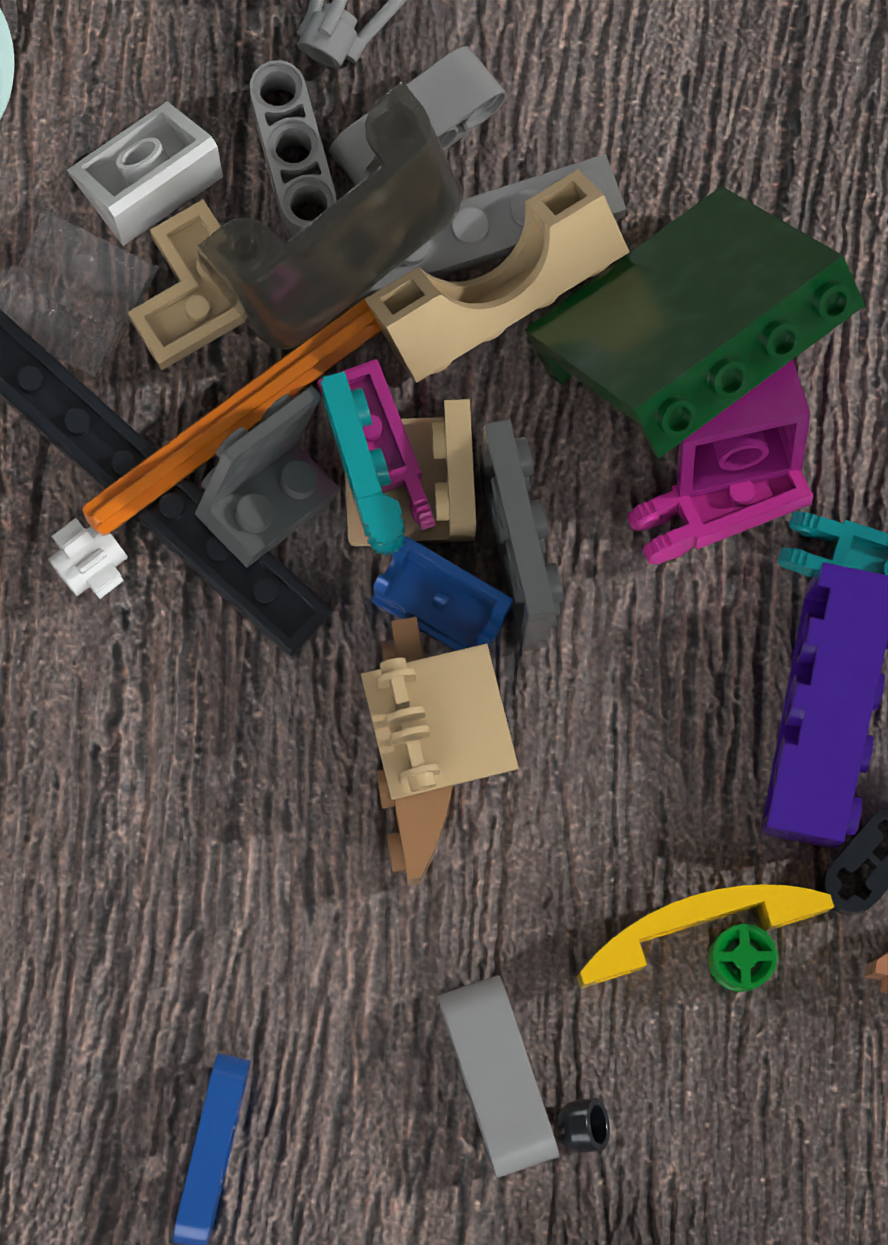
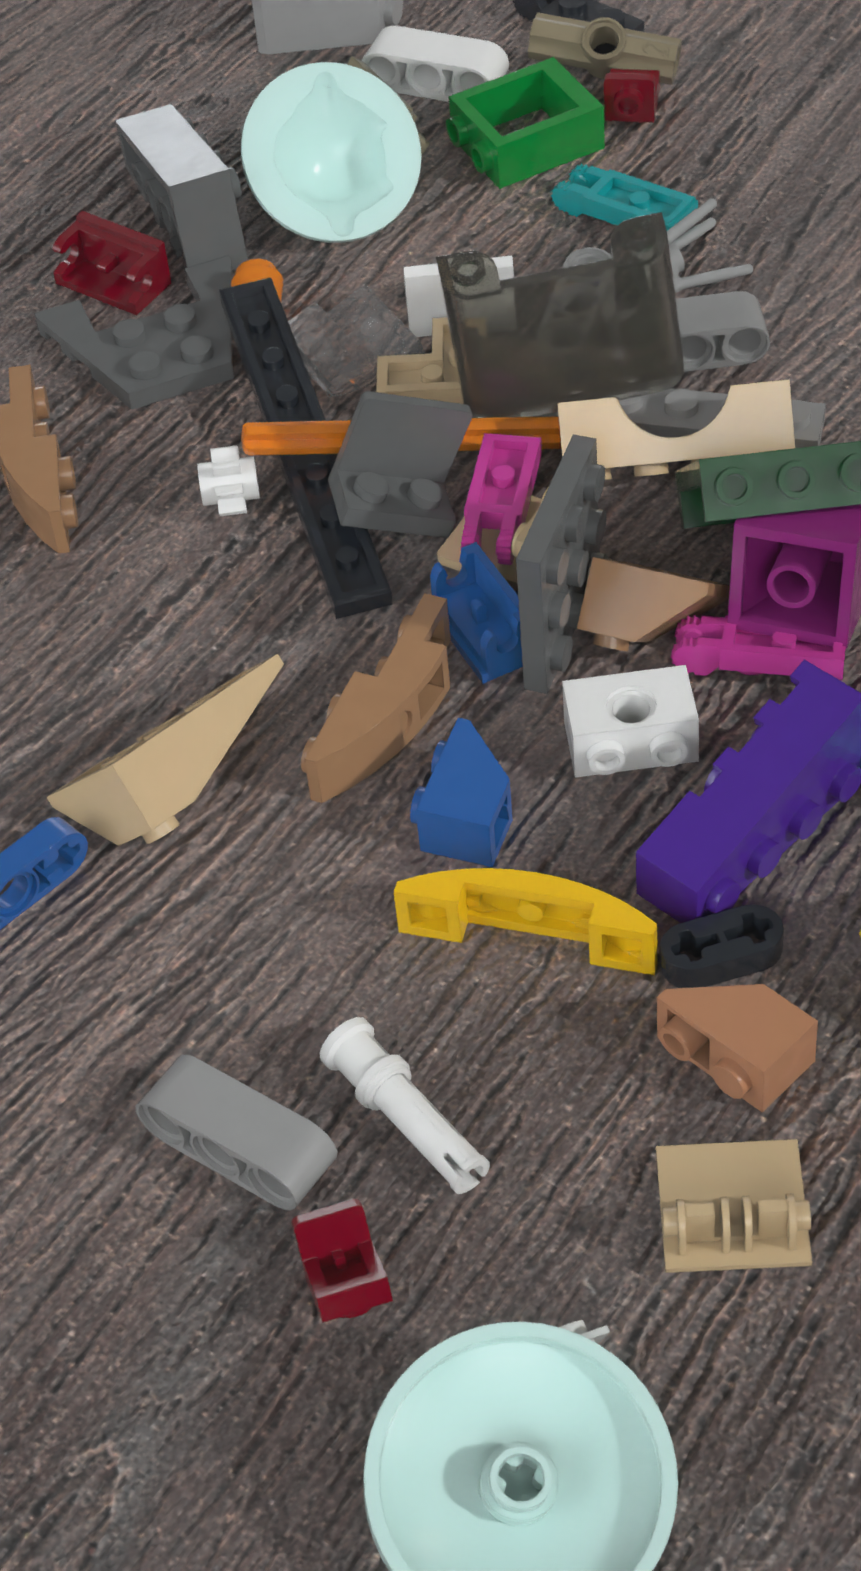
camera: 40 degrees right, 30 degrees down
(264, 942) = (167, 767): none -> tan wedge
(363, 467) = (473, 474): teal hinge -> none
(439, 721) = (408, 657): tan hinge -> none
(498, 1076) = (276, 944): light grey beam -> none
(567, 826) = (466, 800): none -> blue slope
(584, 1125) = (324, 1005): black hinge -> none
(597, 499) = (641, 602): none -> medium nougat slope
(677, 626) = (631, 721): none -> white brick
(684, 1166) = (385, 1085): none -> white pin
(753, 947) = (538, 949): green wheel -> none

